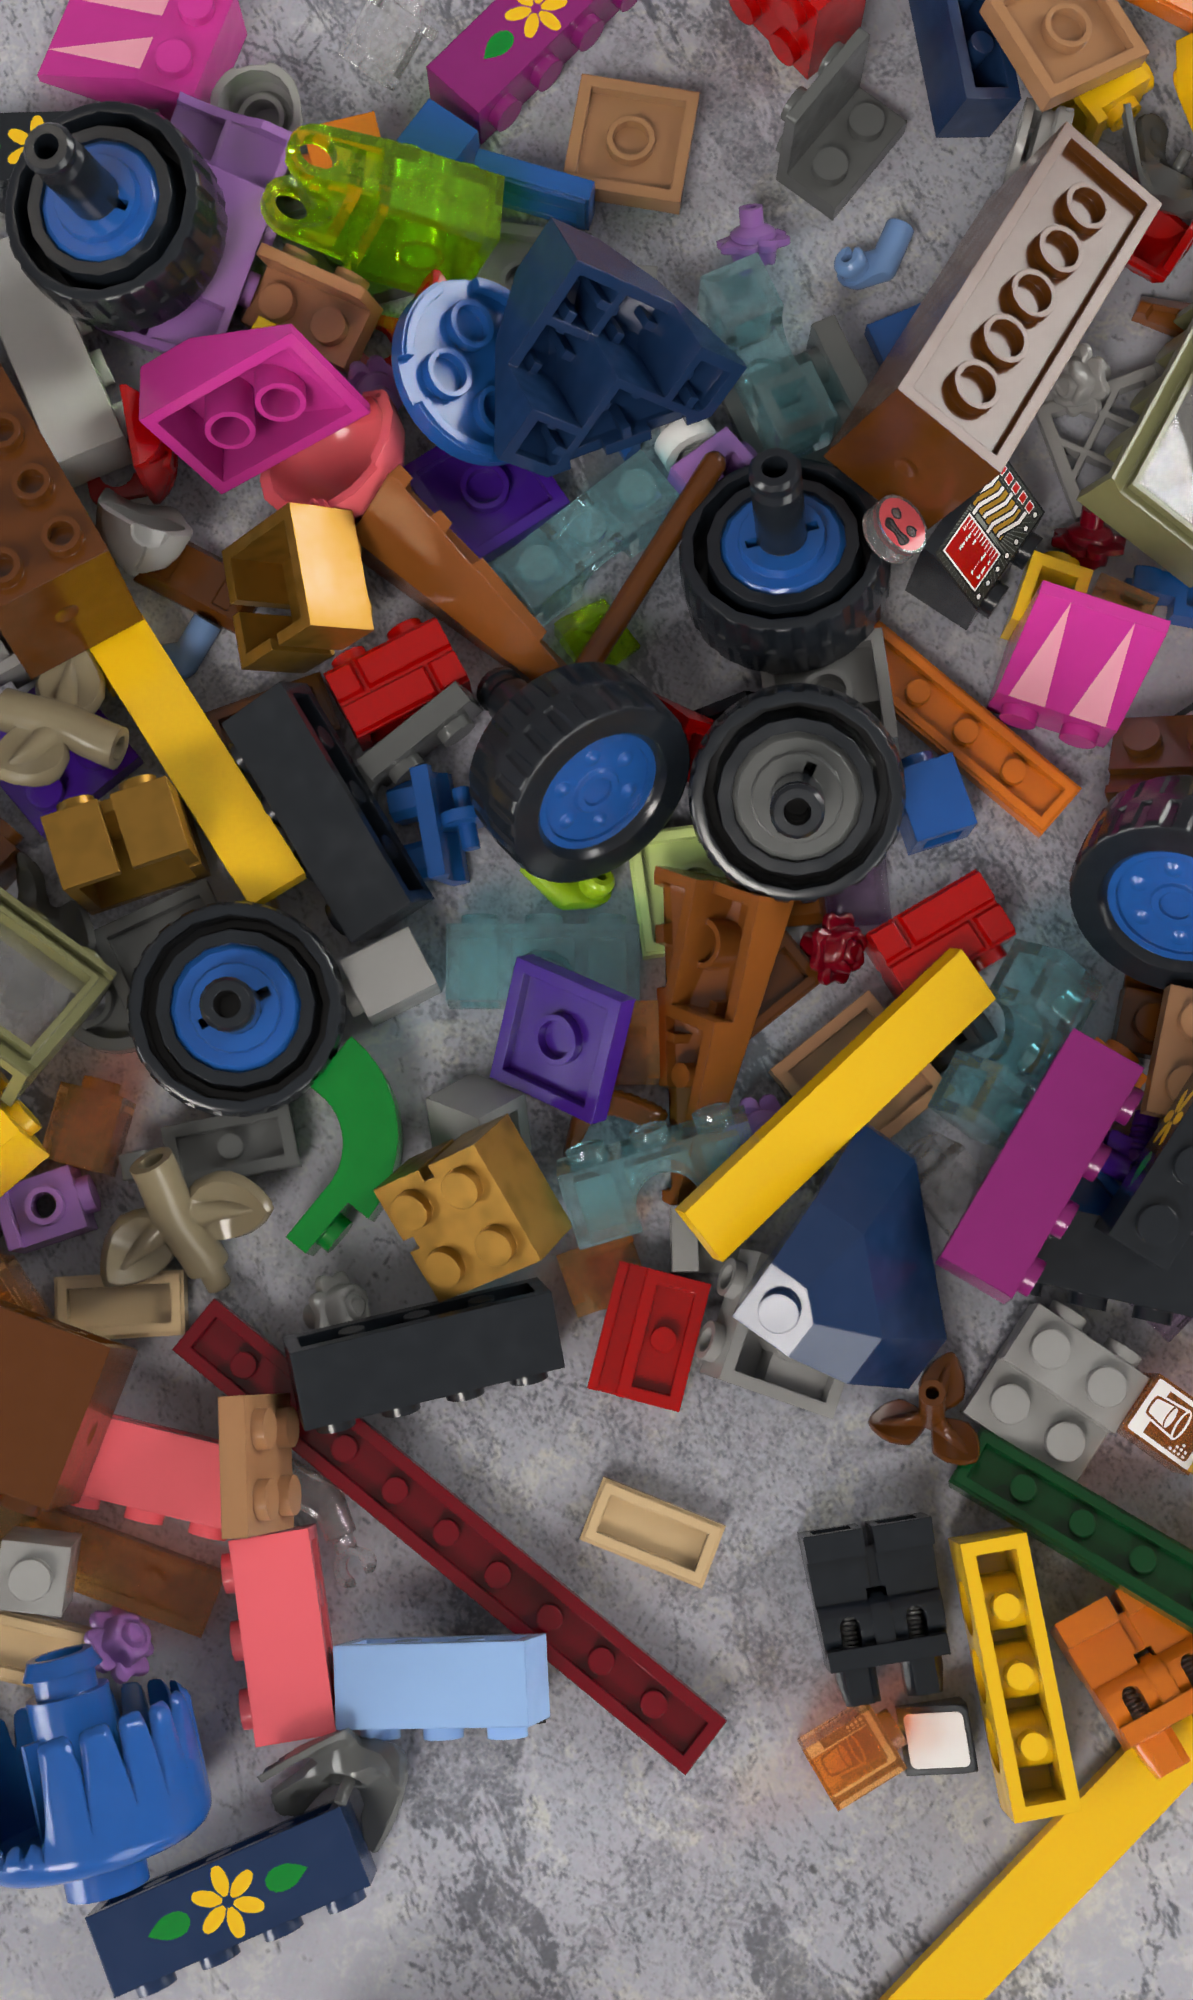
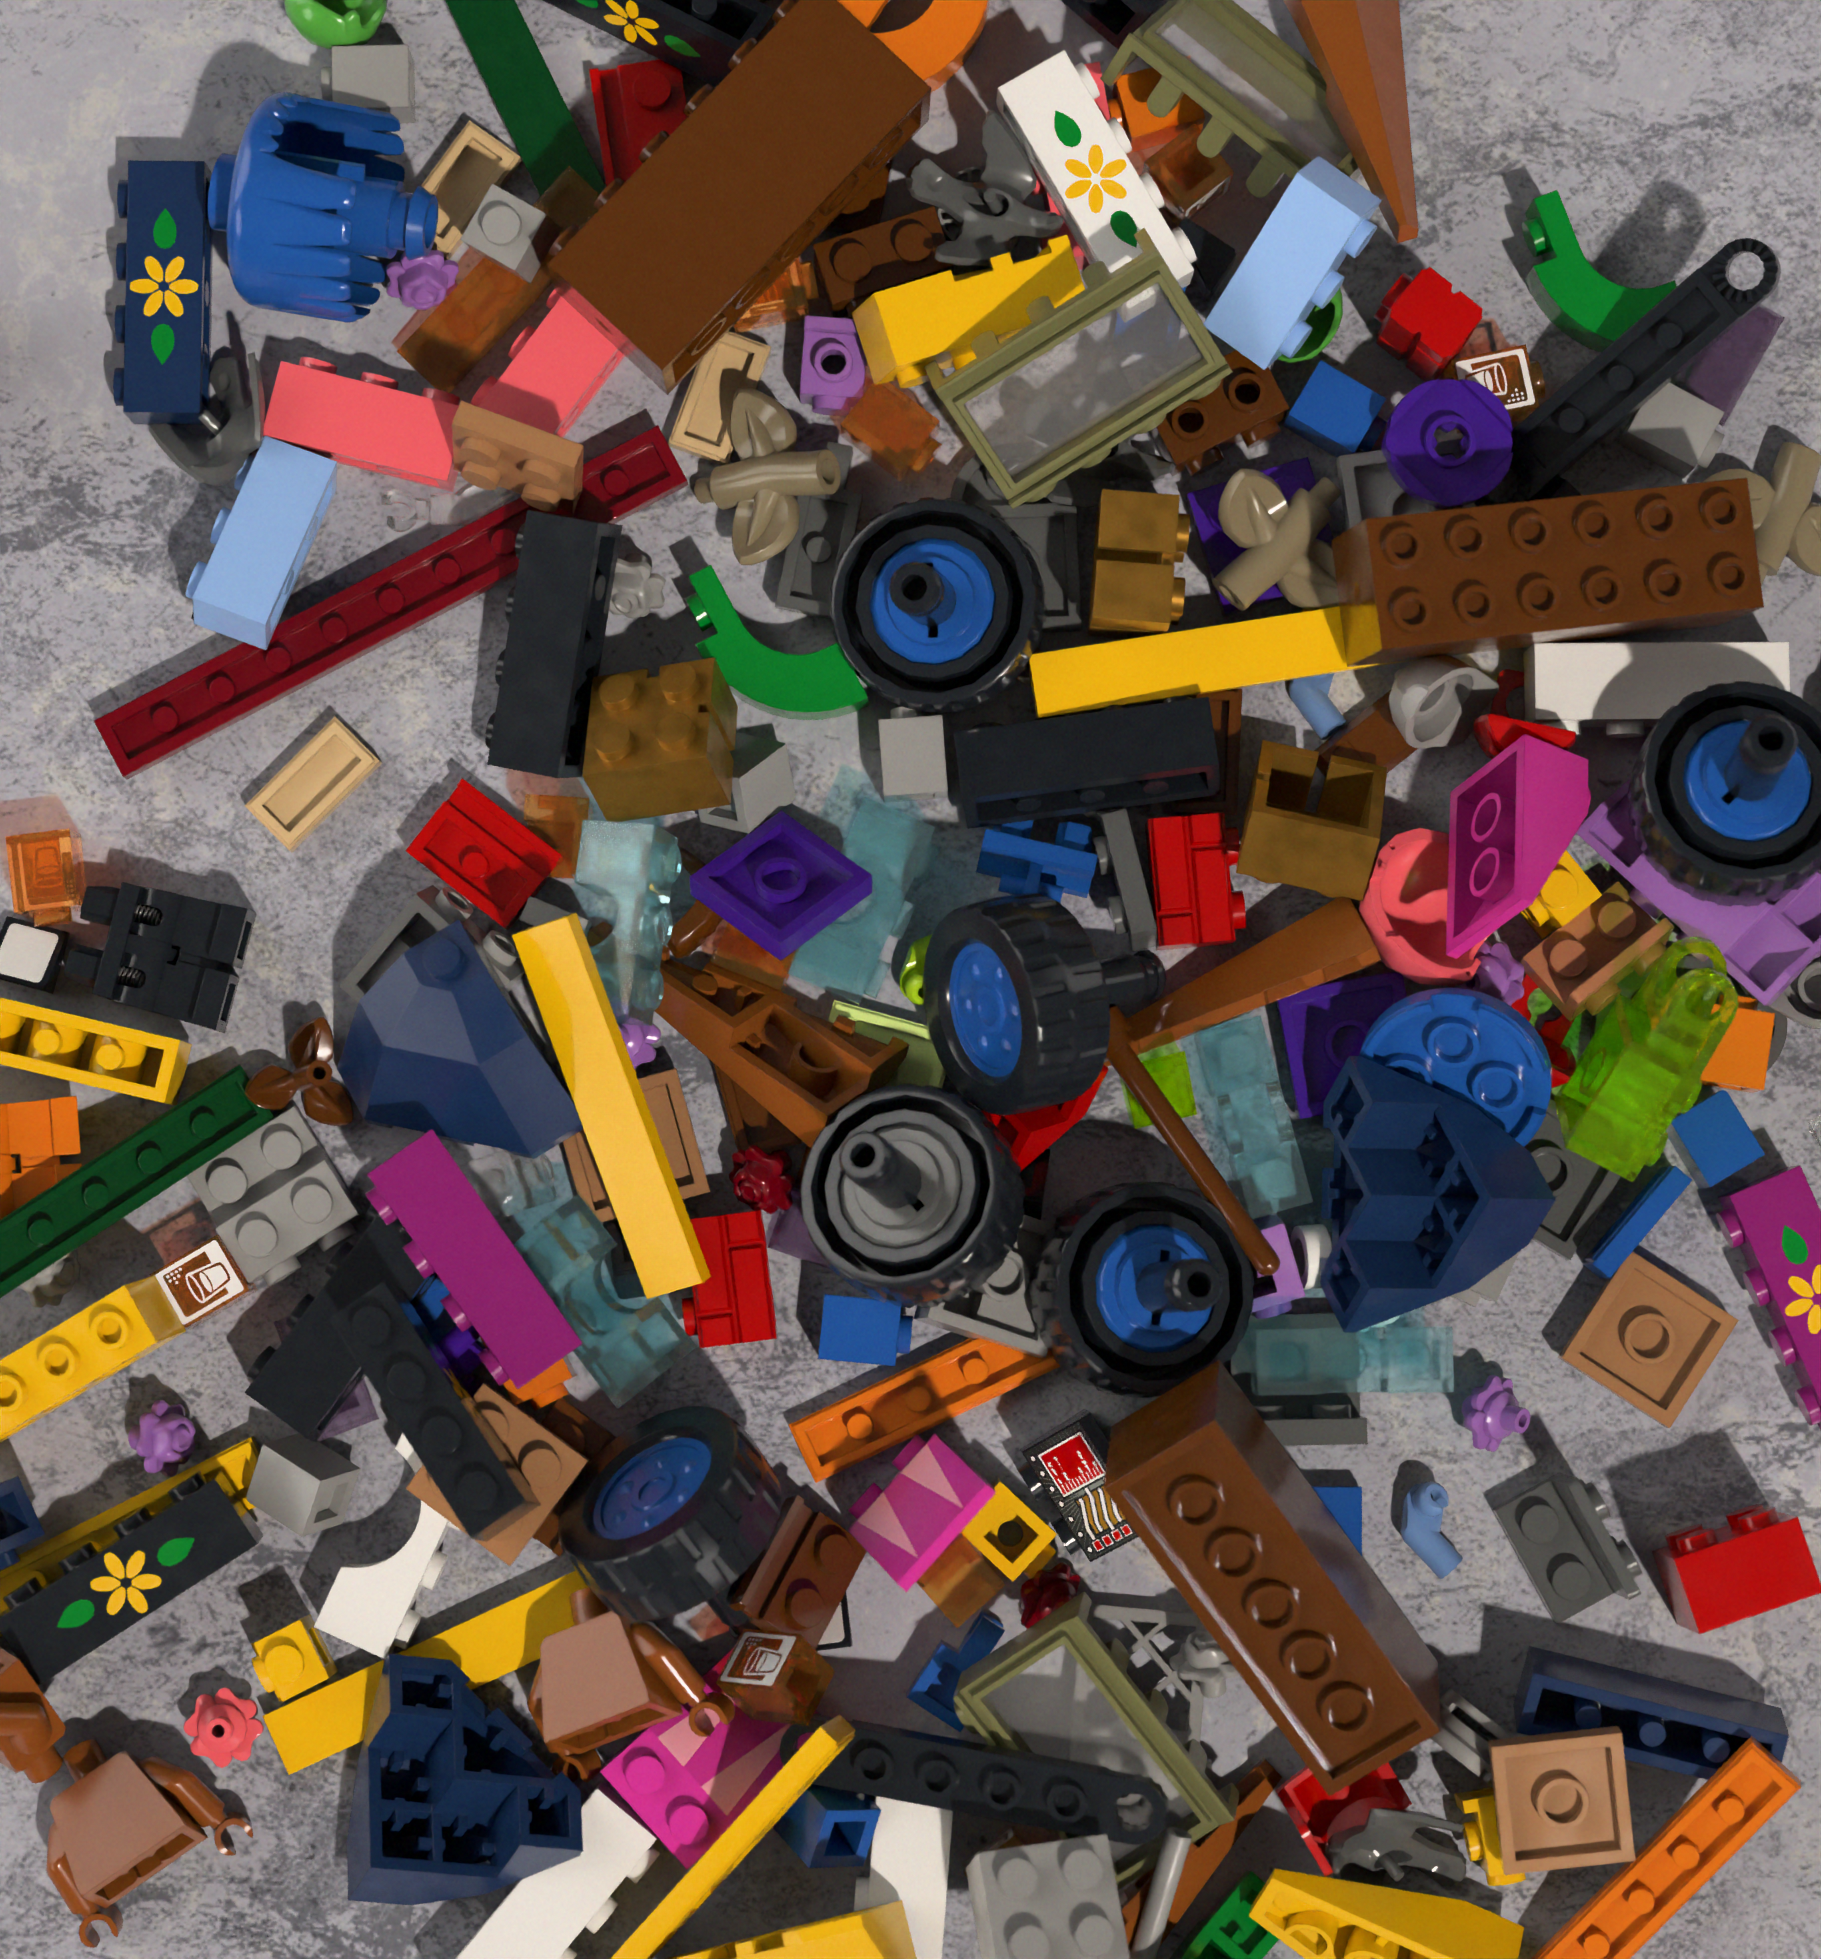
camera: 110 degrees right, 5 degrees up
(894, 529) = (1117, 1393): tile -> none

